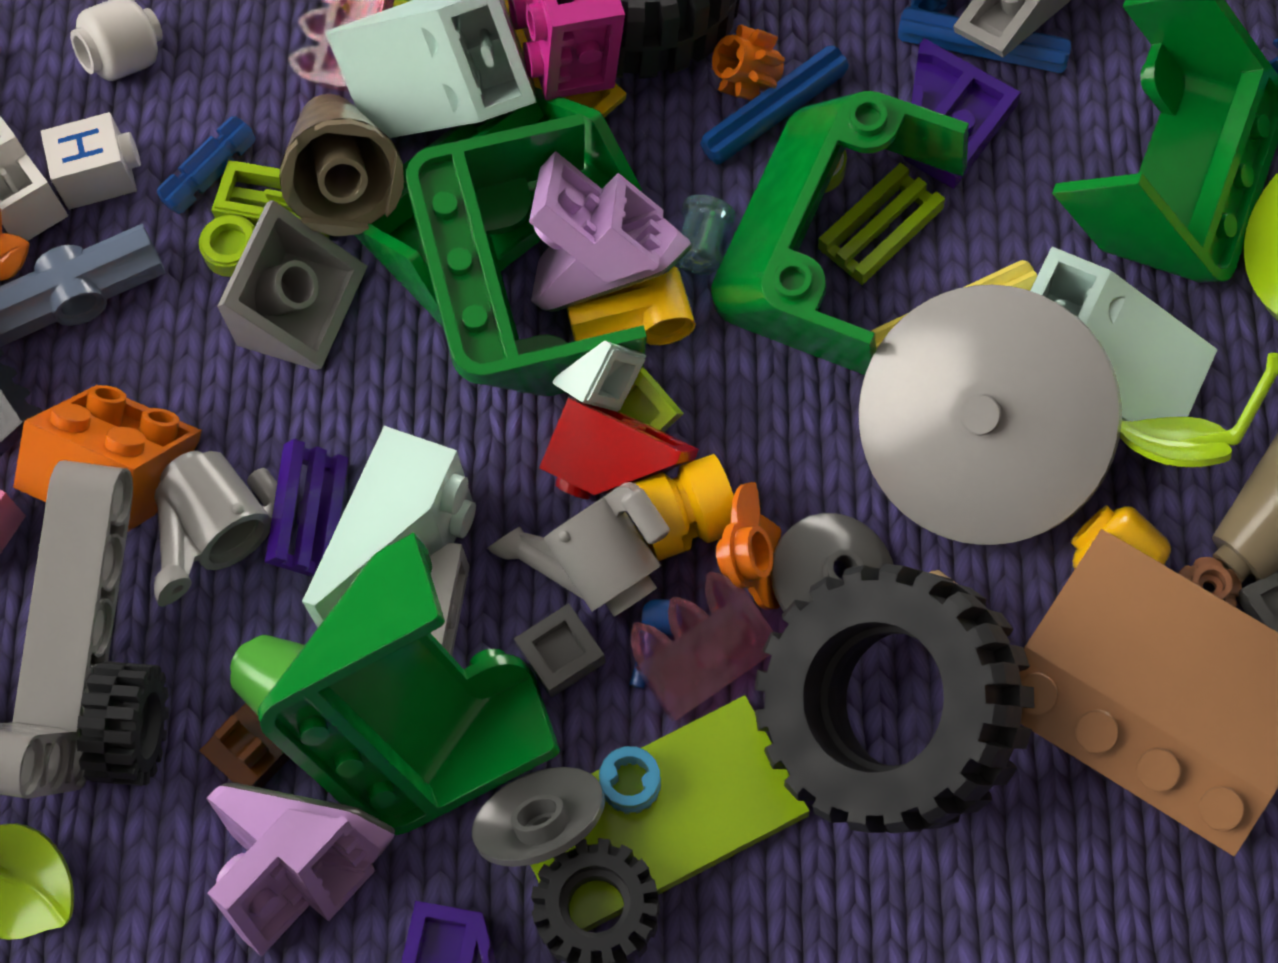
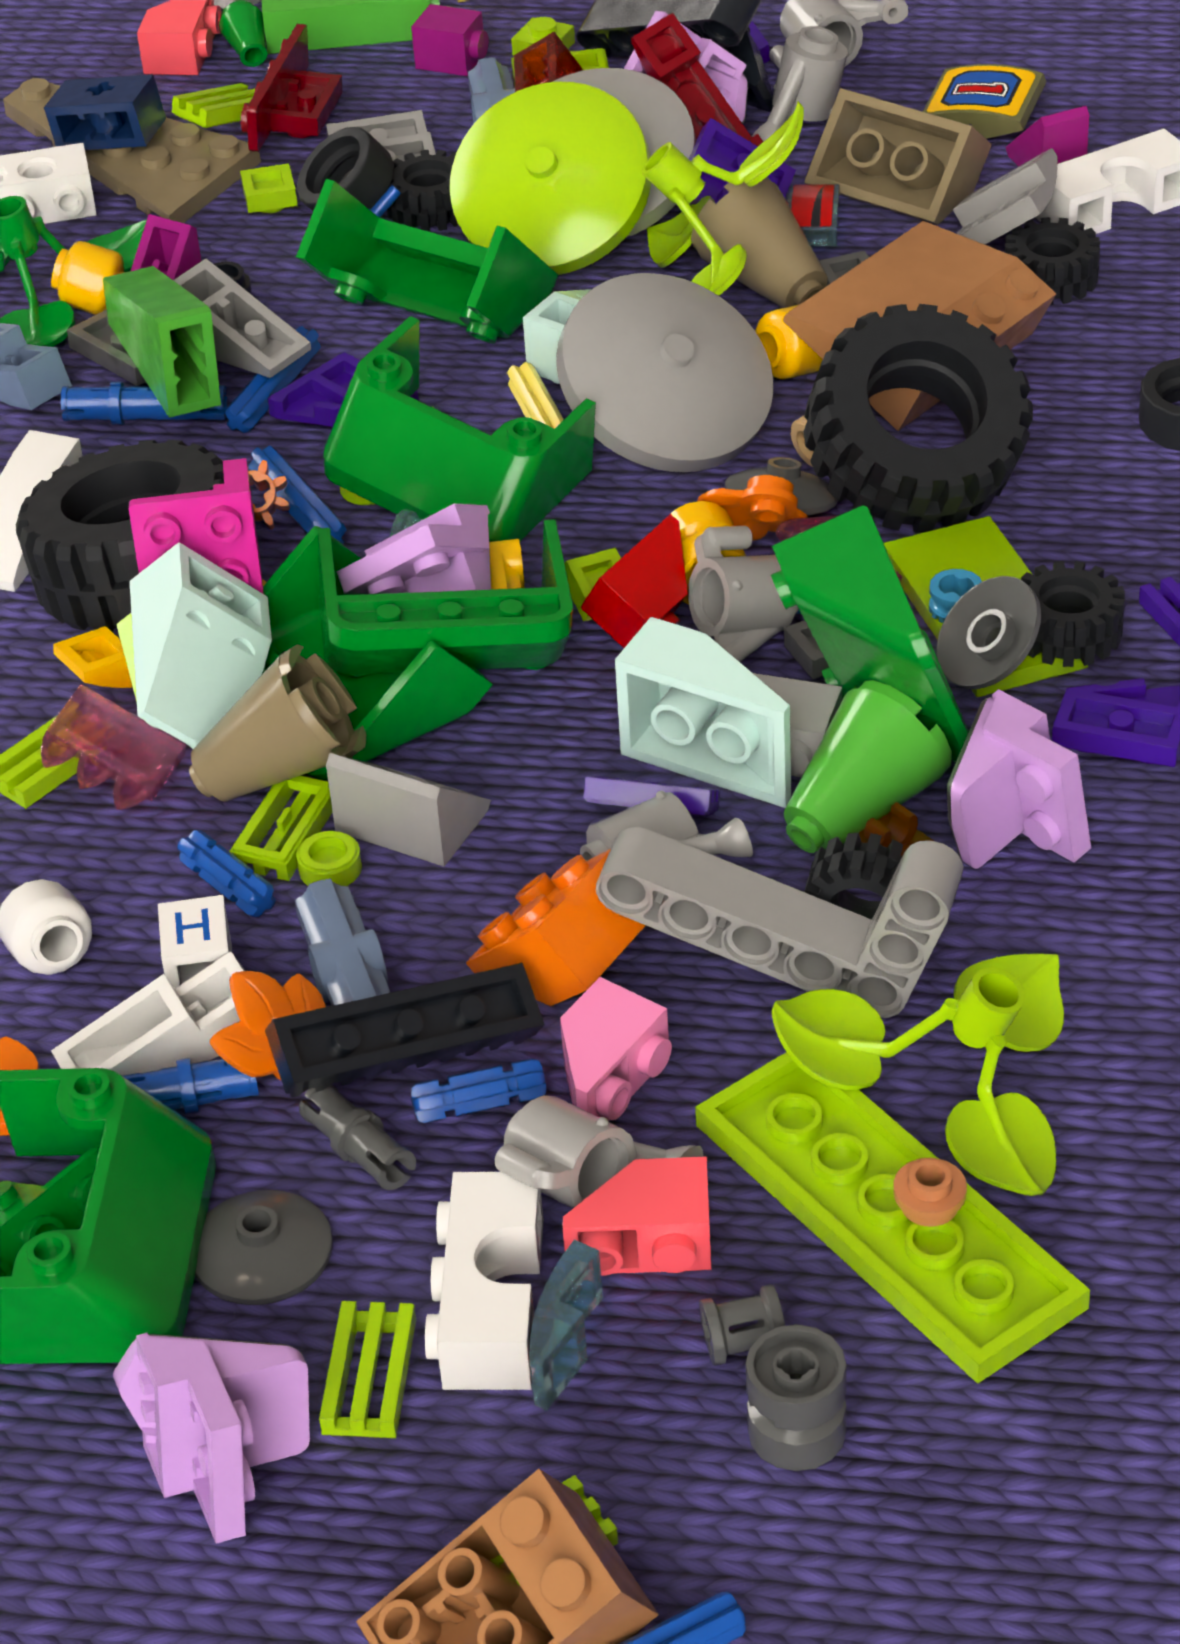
camera: 85 degrees left, 25 degrees down
(602, 375) = (582, 563): light aqua slope -> none

